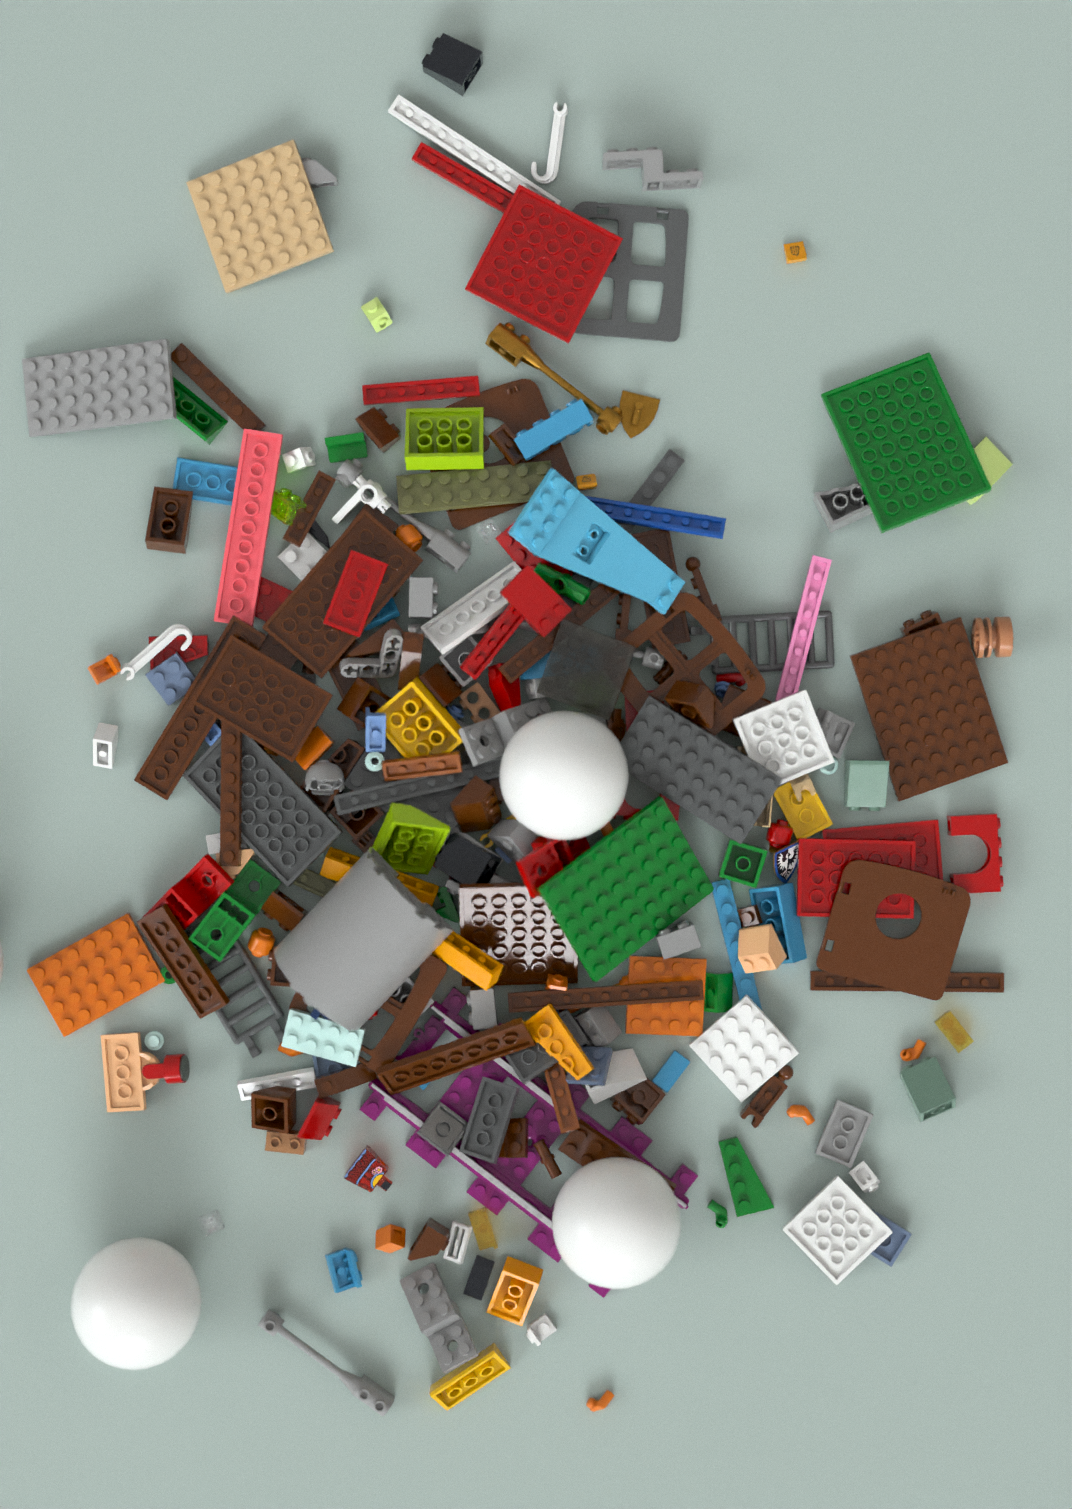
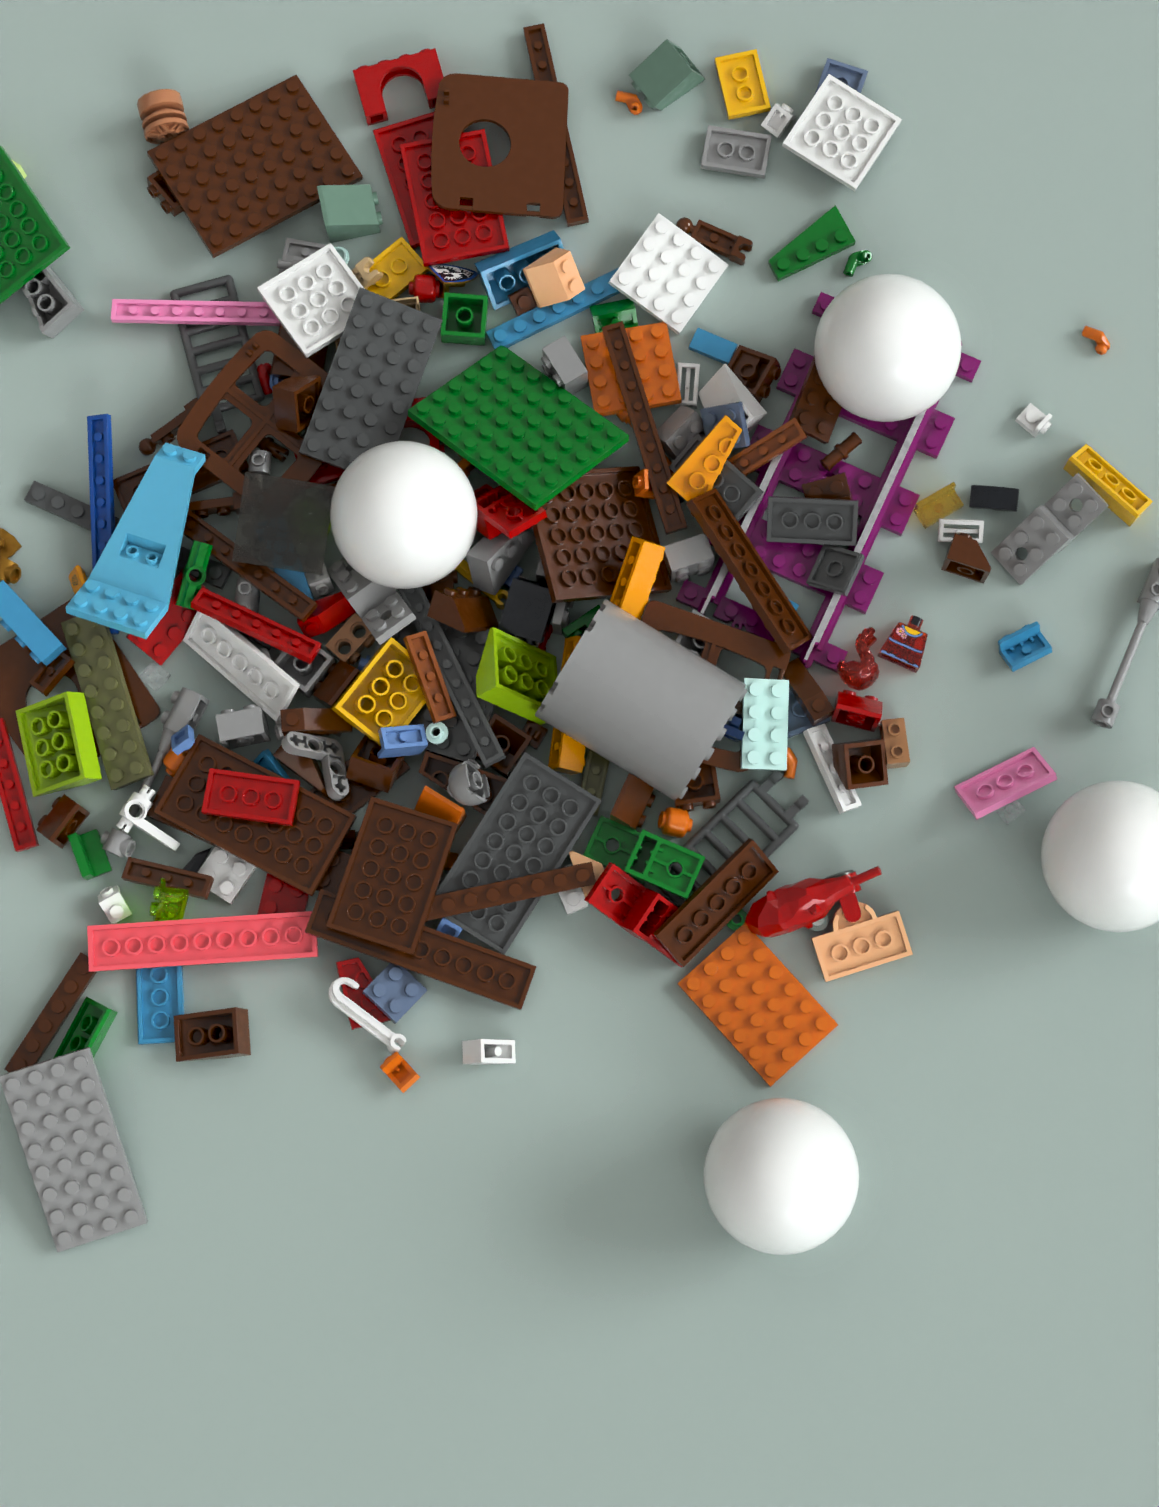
camera: 100 degrees left, 10 degrees down
(165, 1031) = (800, 903): none -> red piece
(230, 1225) = (1005, 783): none -> bright pink plate
(348, 1129) = (864, 673): none -> clear red hair
(390, 1238) = (975, 604): orange panel -> none
(420, 545) = (183, 739): none -> medium blue plate
(515, 1291) = (998, 456): light orange slope -> none
(535, 601) = (218, 594): red slope -> none
(642, 1049) = (686, 402): none -> white tile
(800, 1111) = (723, 201): orange arm -> none
(905, 1153) = (742, 84): none -> yellow plate
(953, 1031) = (598, 65): clear yellow plate -> none

